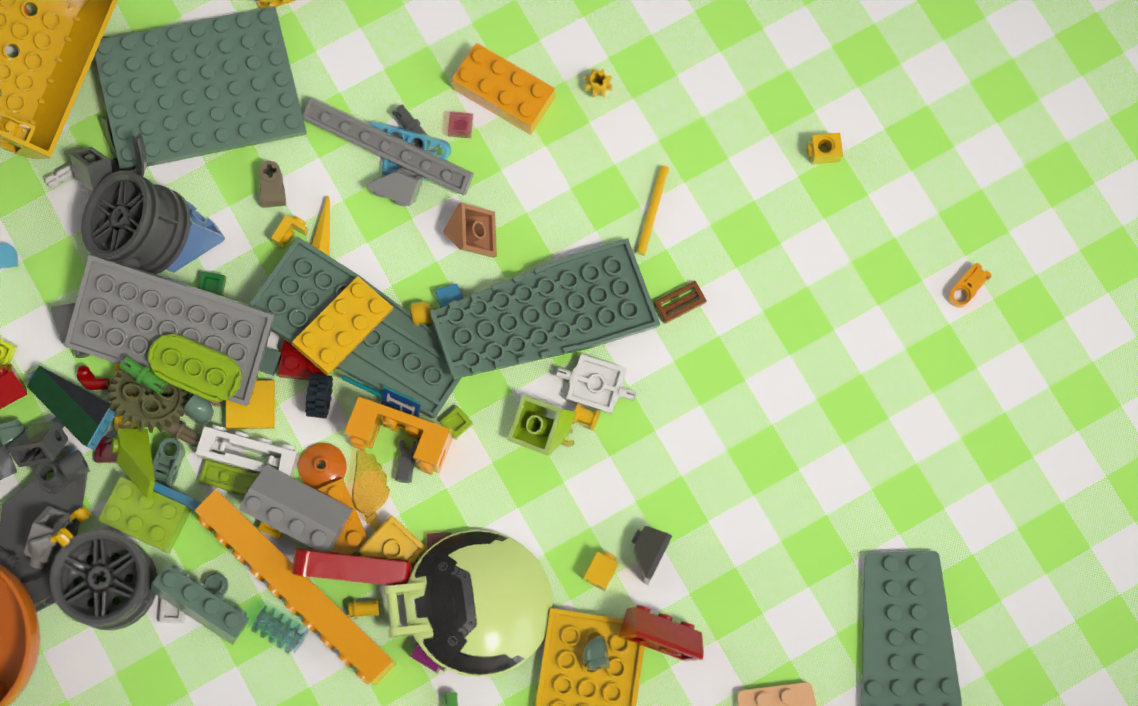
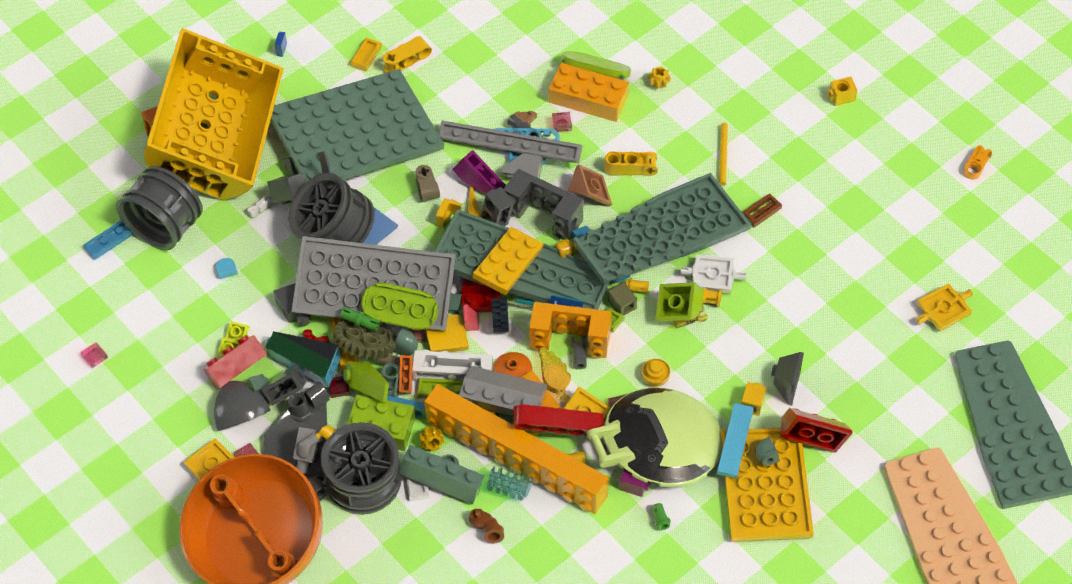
camera: 10 degrees left, 20 degrees down
(187, 457) = (405, 374): none -> orange piece
(200, 549) = (431, 438): none -> yellow gear
(236, 668) = (492, 530): none -> dark orange arm
(285, 389) = (471, 319): none -> coral slope
(341, 189) = (477, 173): none -> magenta slope
(347, 243) = (497, 206): none -> dark grey brick
(384, 224) = (564, 206): none -> dark grey plate
(417, 107) = (528, 116): none -> medium nougat tile
(475, 399) = (622, 299): none -> olive brick
(492, 509) = (655, 372): none -> yellow plate
(498, 382) = (637, 286): none -> yellow pin
(522, 49) = (596, 64): none -> lime tile
(544, 211) = (630, 163): none -> yellow piece
(563, 628) = (735, 440): none -> medium azure tile
(869, 488) = (944, 307): none -> yellow plate

